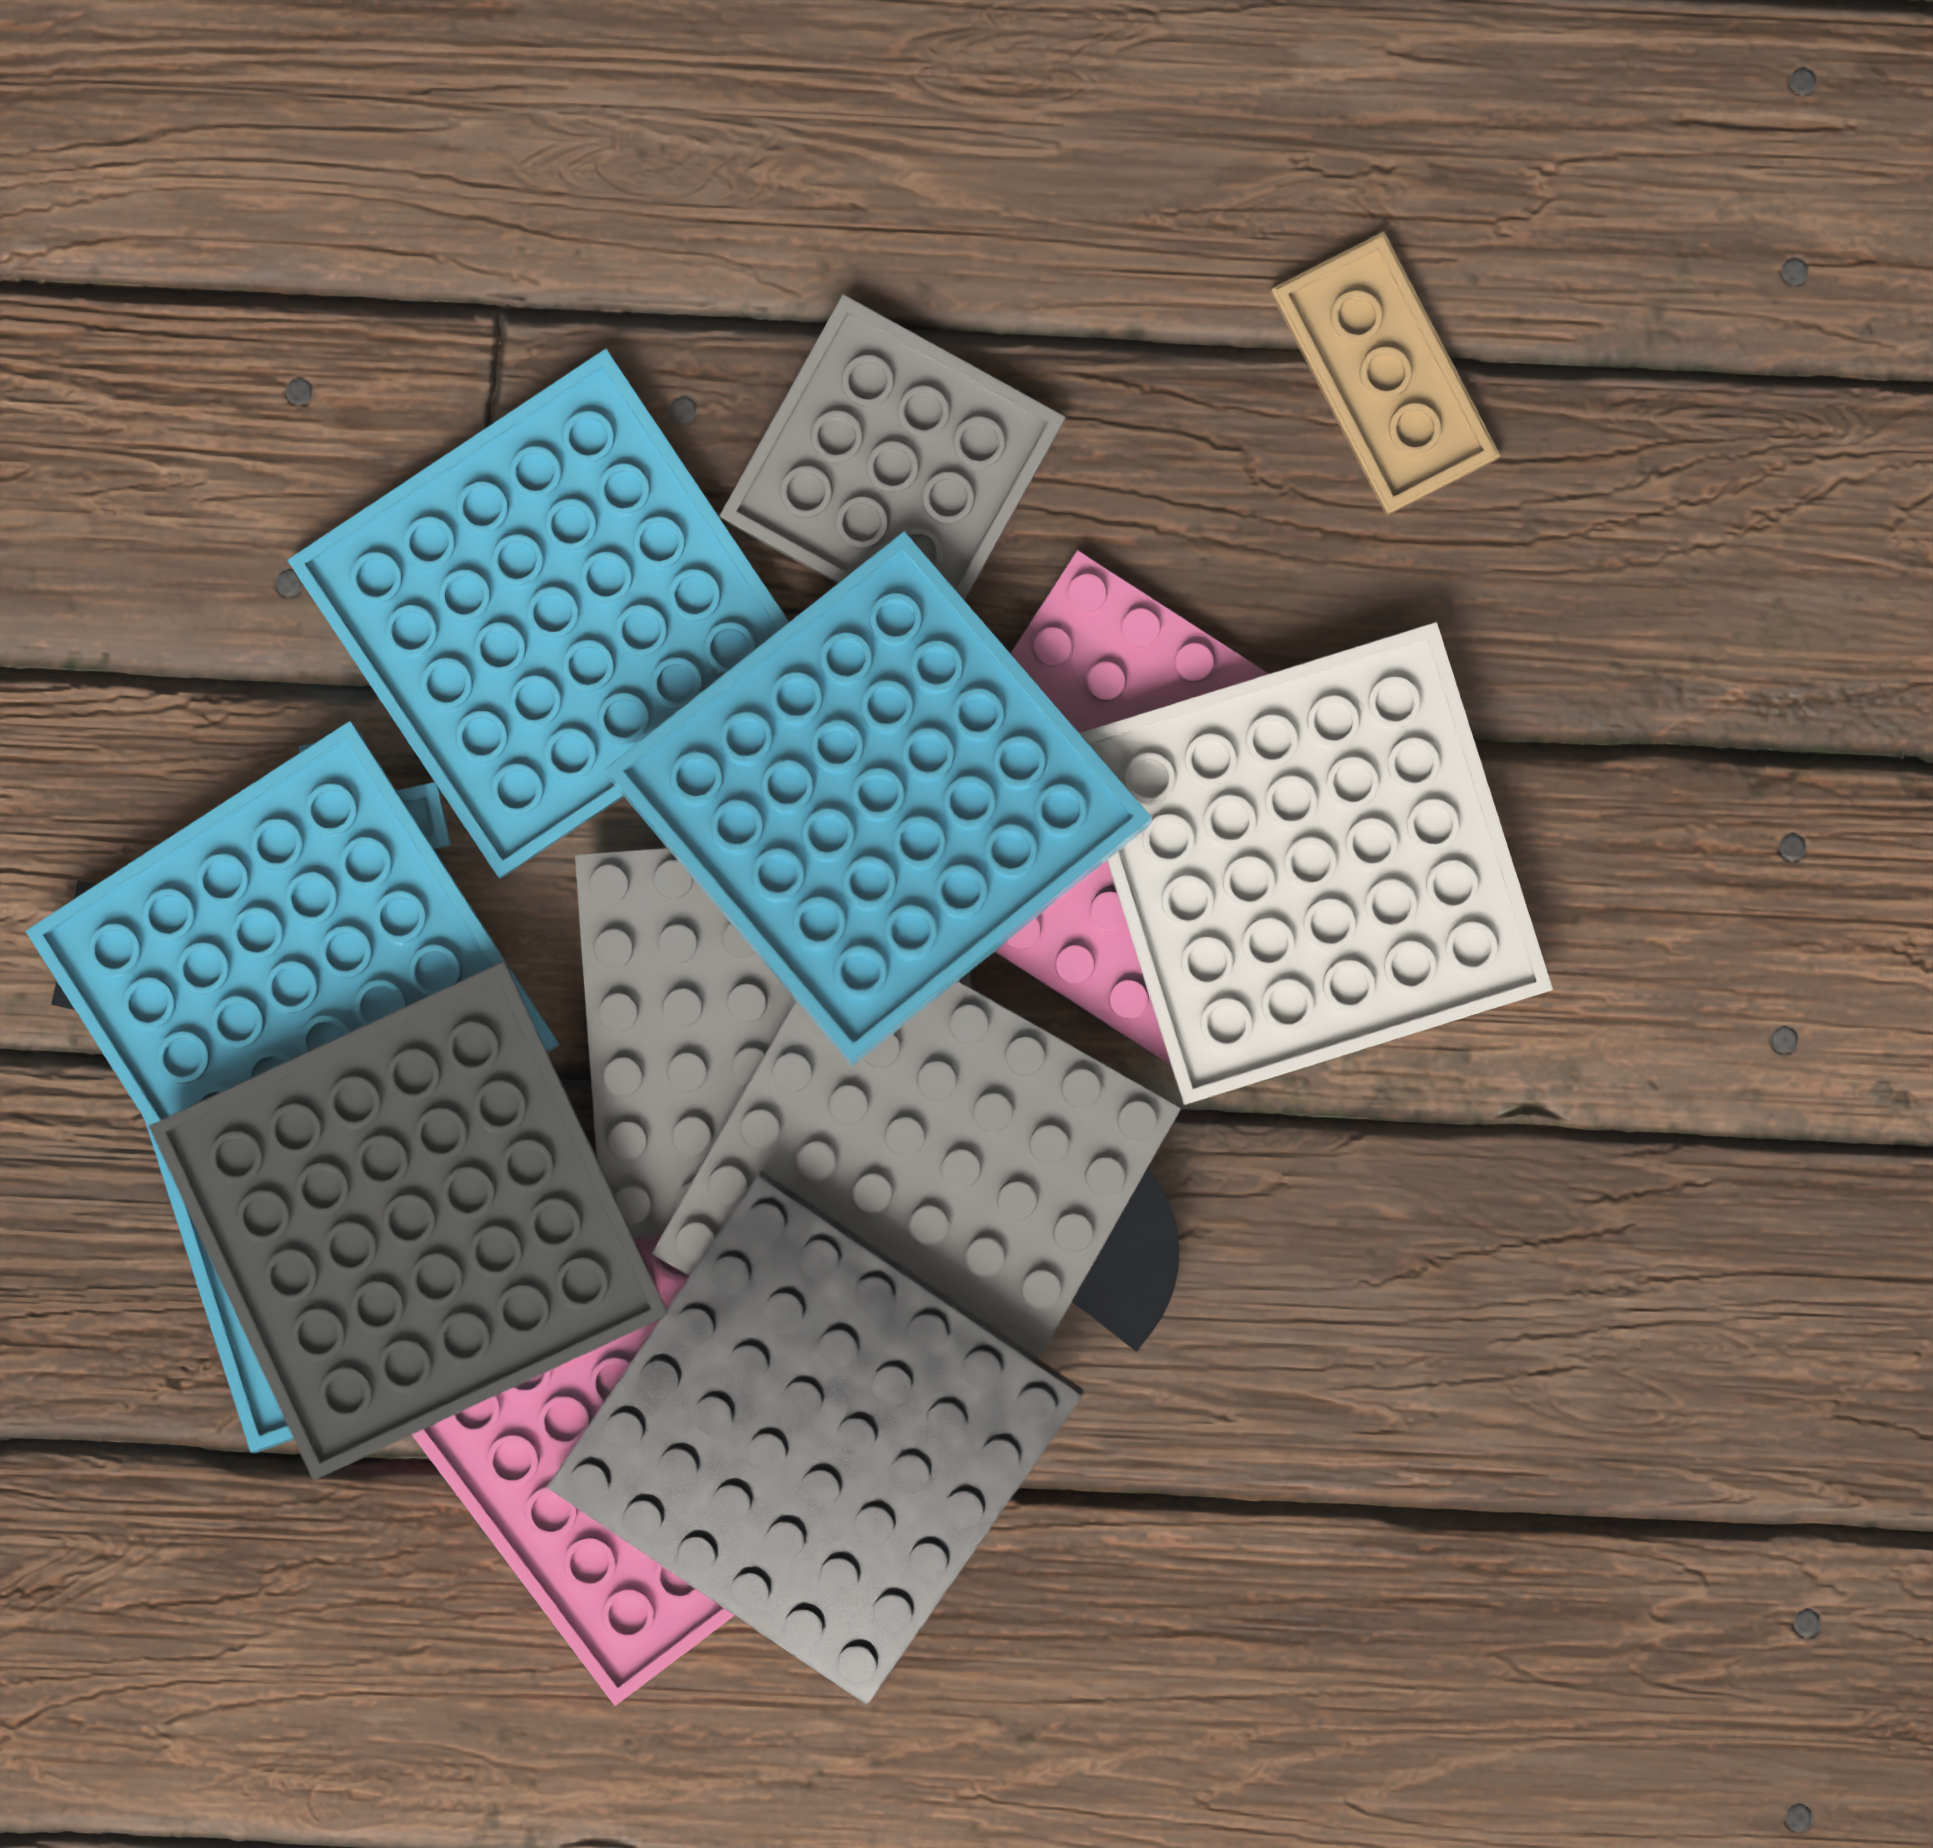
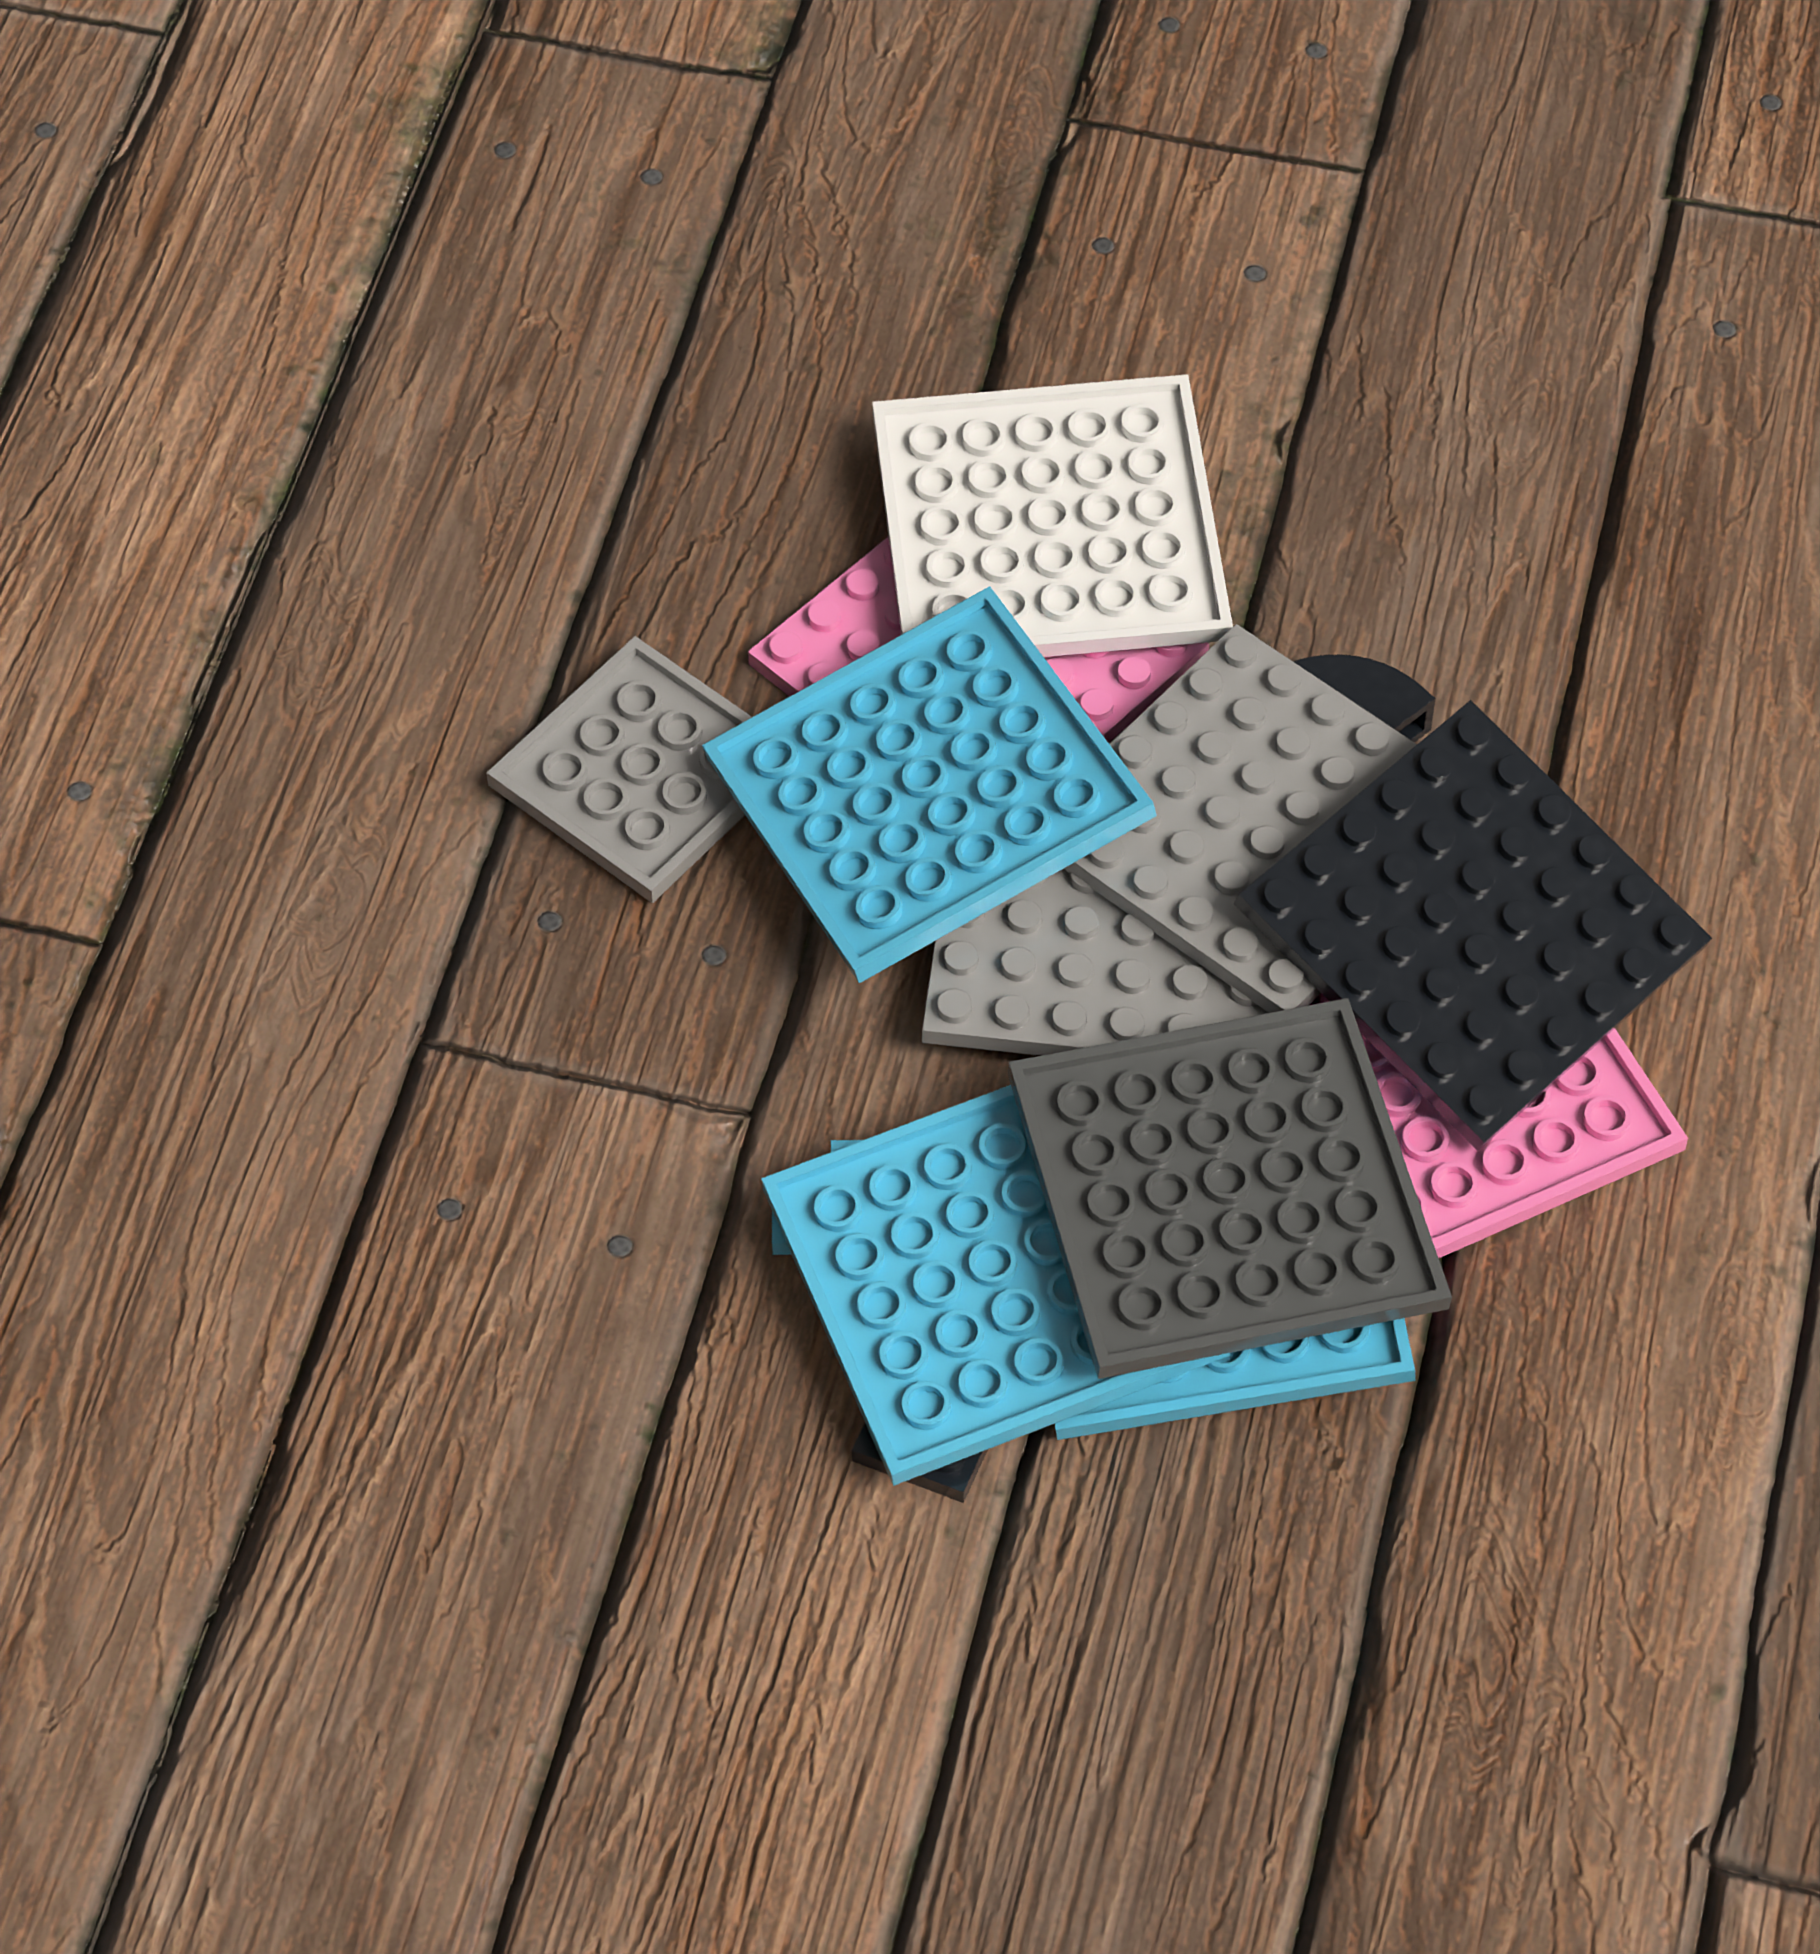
camera: 75 degrees left, 30 degrees down
(540, 606) = (699, 1040): medium azure plate -> none
(1385, 373) = (658, 434): tan tile -> none

